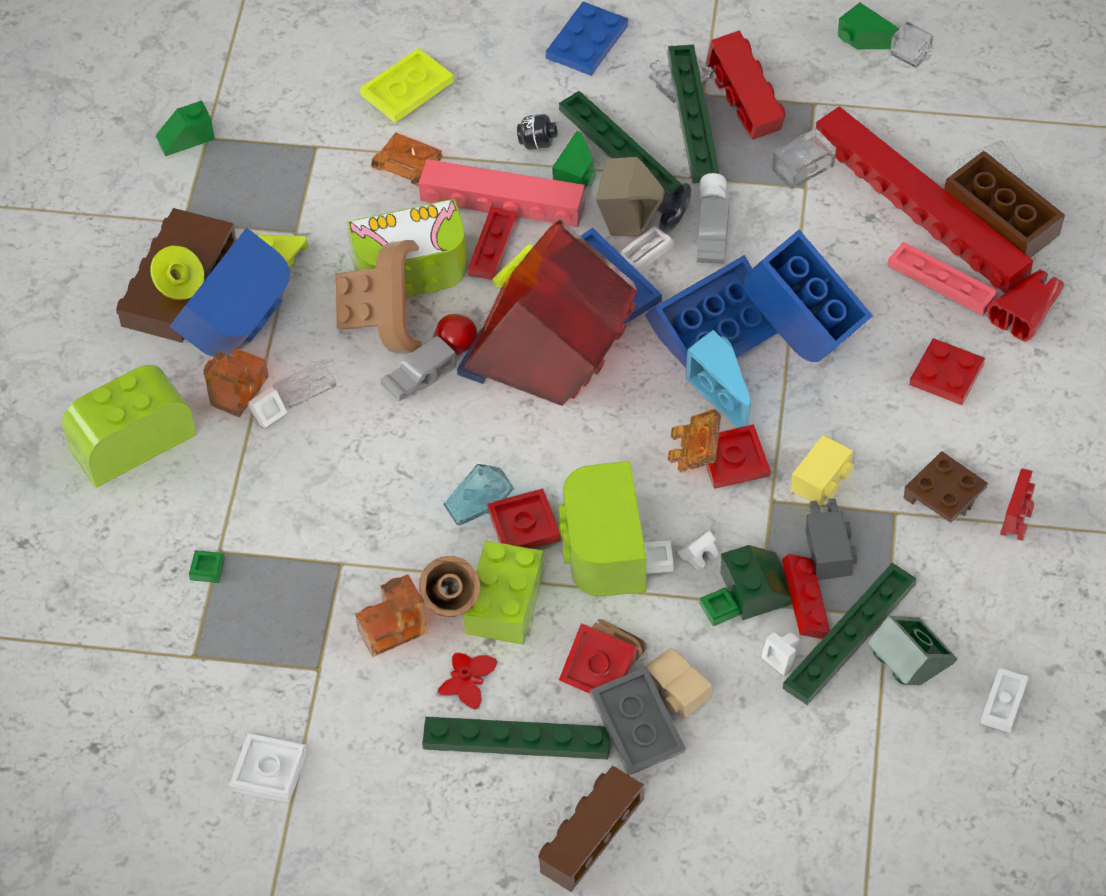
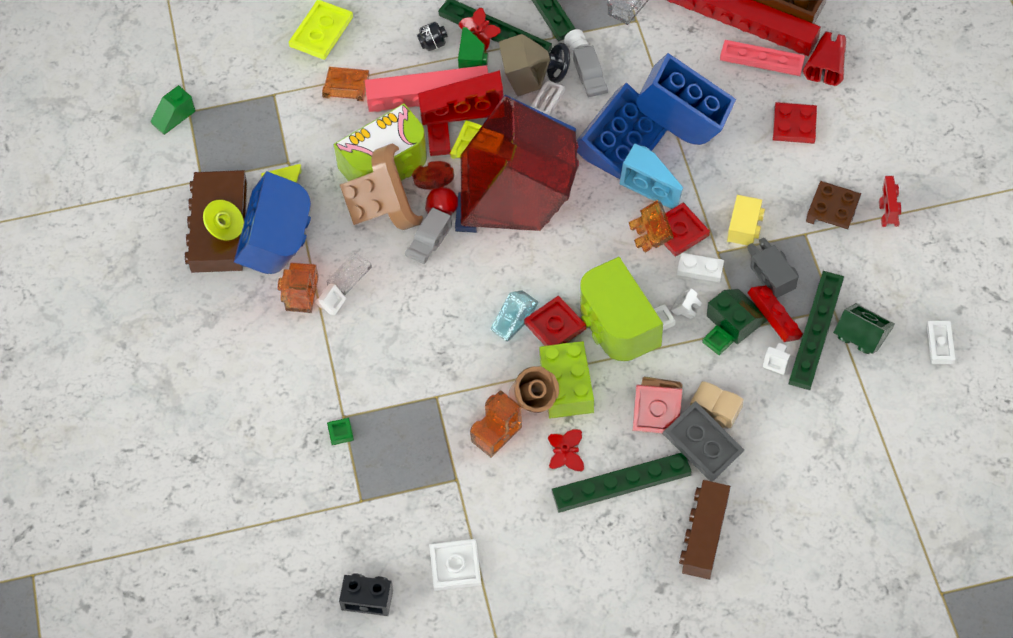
camera: 20 degrees left, 5 degrees up
(126, 423) = (235, 345): lime brick -> none
(144, 765) = (366, 594): none -> black brick
(458, 299) = (433, 176): none -> clear red tile
(527, 215) = (461, 100): none -> red wedge
(600, 138) = (480, 27): none -> red piece
(739, 511) = (700, 267): none -> white plate

